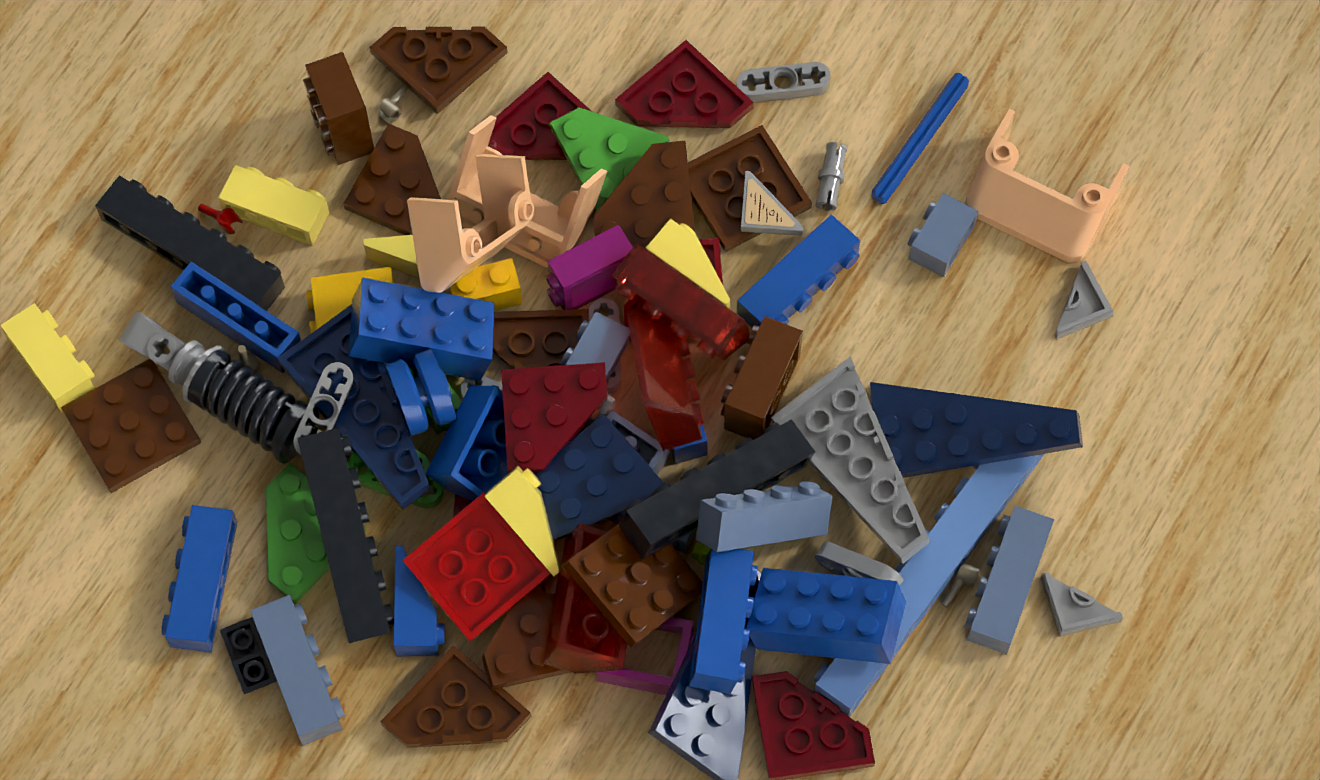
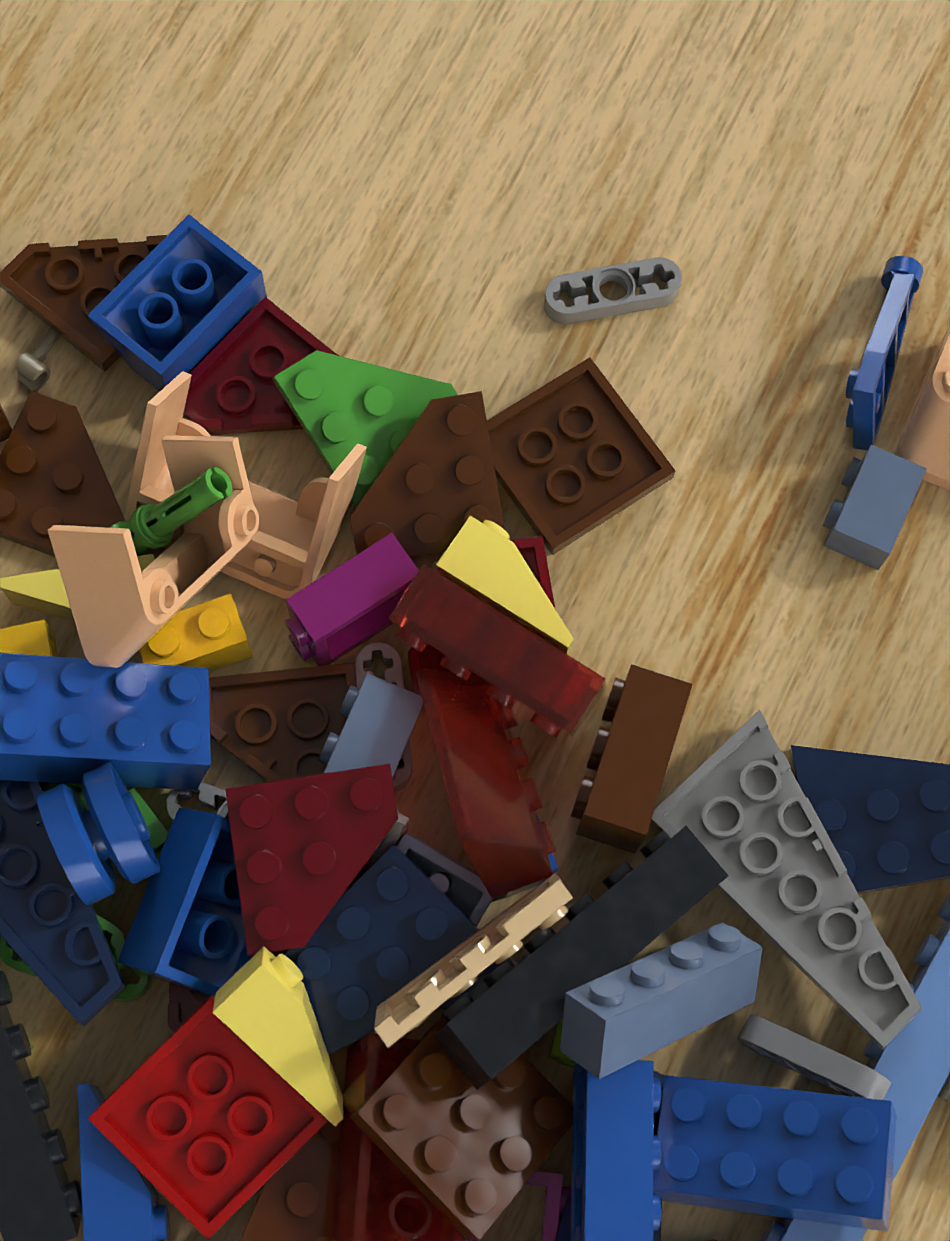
camera: 10 degrees left, 5 degrees up
(486, 199) = (155, 524): none -> bright green pin
(490, 72) = (178, 303): none -> blue slope
(684, 93) = (470, 317): dark red plate -> none
(691, 453) = (461, 965): none -> tan wing
(764, 212) = (607, 492): tile -> none
(801, 274) = (668, 587): blue brick -> none
(831, 176) = (698, 428): light grey pin -> none
(920, 138) = (820, 362): blue axle -> none
(946, 158) = (872, 382): none -> blue plate

